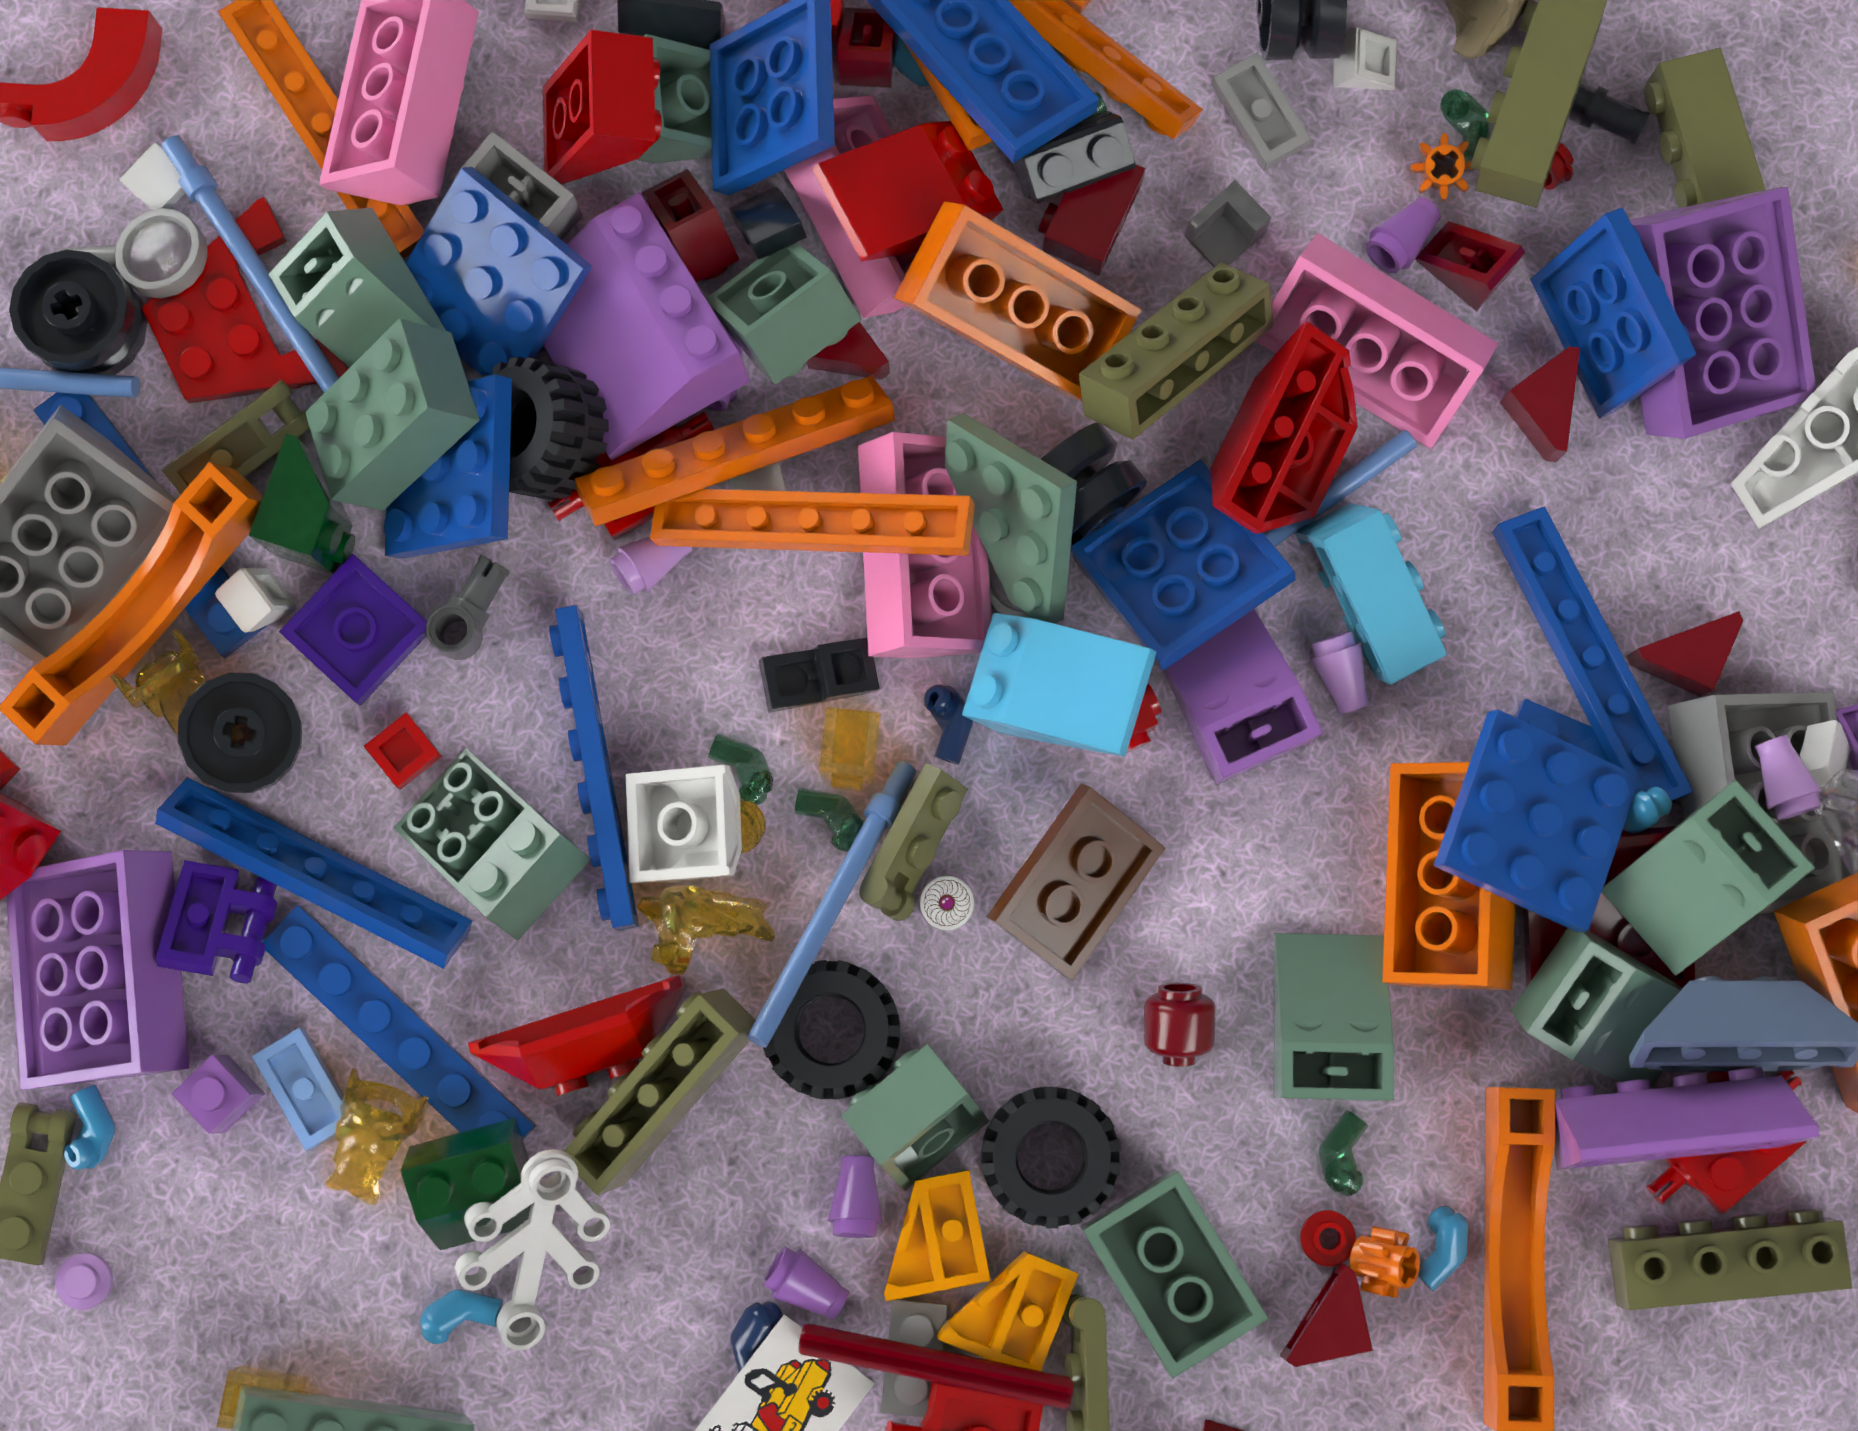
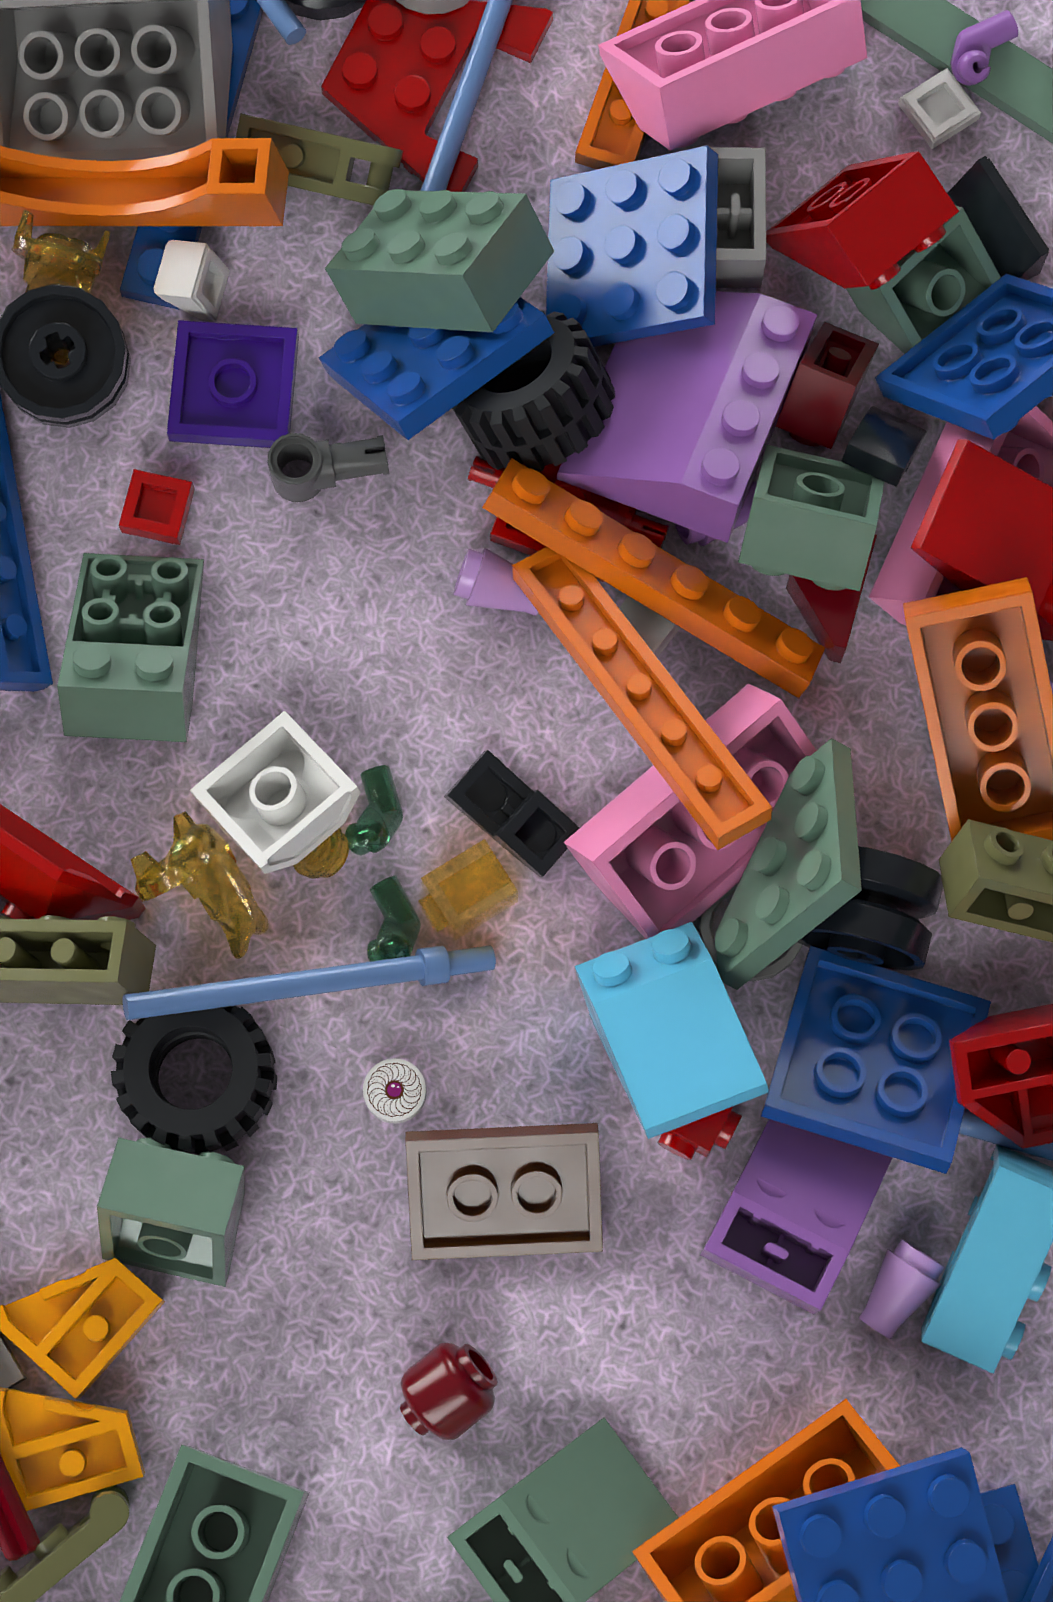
camera: 50 degrees right, 5 degrees down
(298, 515) = (289, 252): dark green slope -> none
(350, 283) = (532, 135): sand green slope -> none
(598, 792) = (286, 664): blue plate -> none
(856, 1200) = (57, 1218): medium lavender cone -> none
(912, 843) = (423, 1014): olive plate -> none
(947, 709) = (575, 946): dark blue arm -> none
(1099, 1166) = (175, 1351): black tyre -> none

